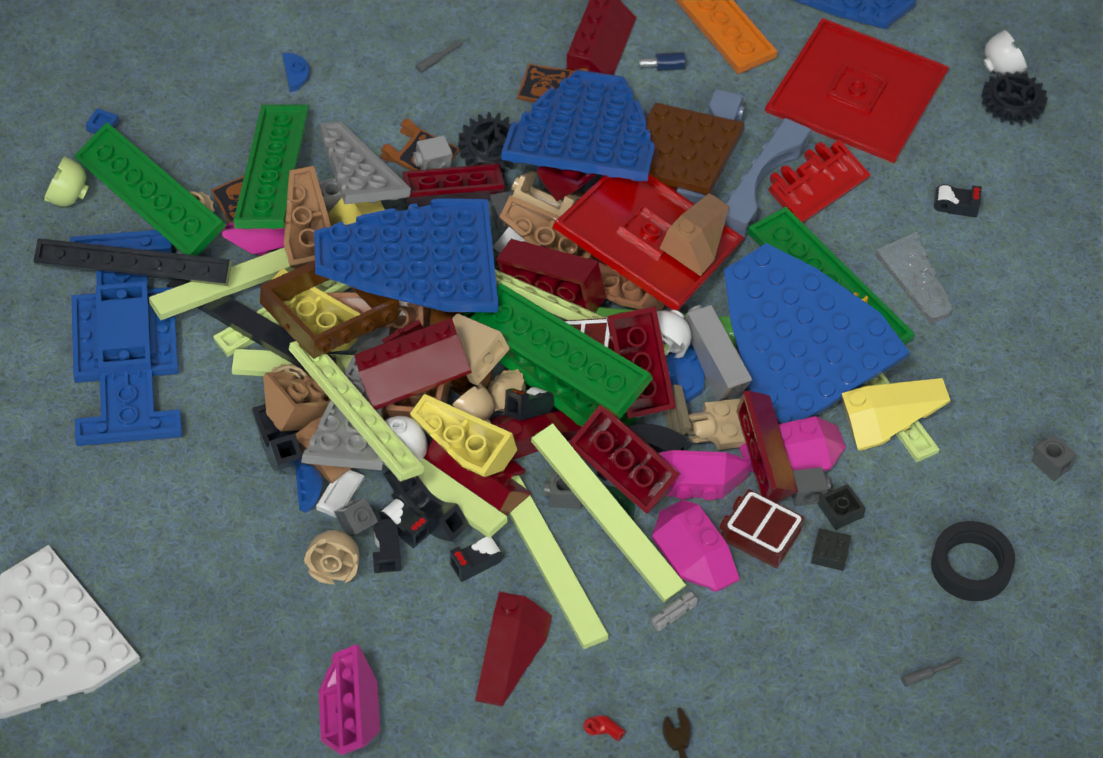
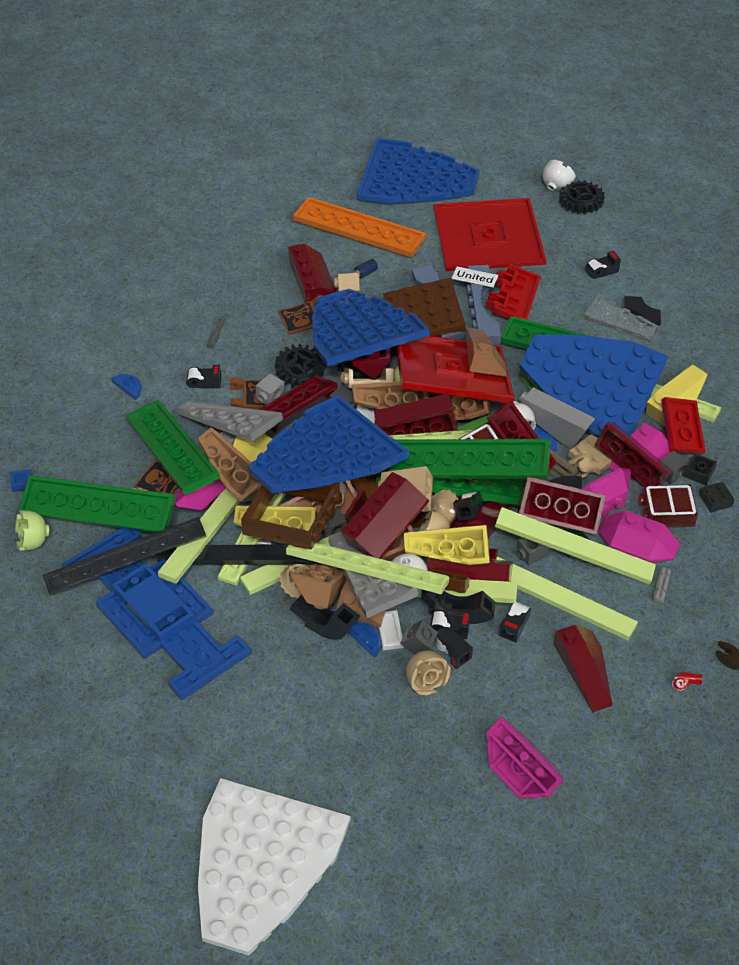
camera: 30 degrees left, 5 degrees down
(379, 104) = (204, 378): none -> black leg
(435, 473) = (457, 581): none -> reddish brown piece
(631, 67) = (347, 281): none -> tan brick
(780, 136) = (475, 276): none -> white sticker
(861, 445) = (683, 426): none -> red tile
(959, 289) = (639, 307): none -> black tile

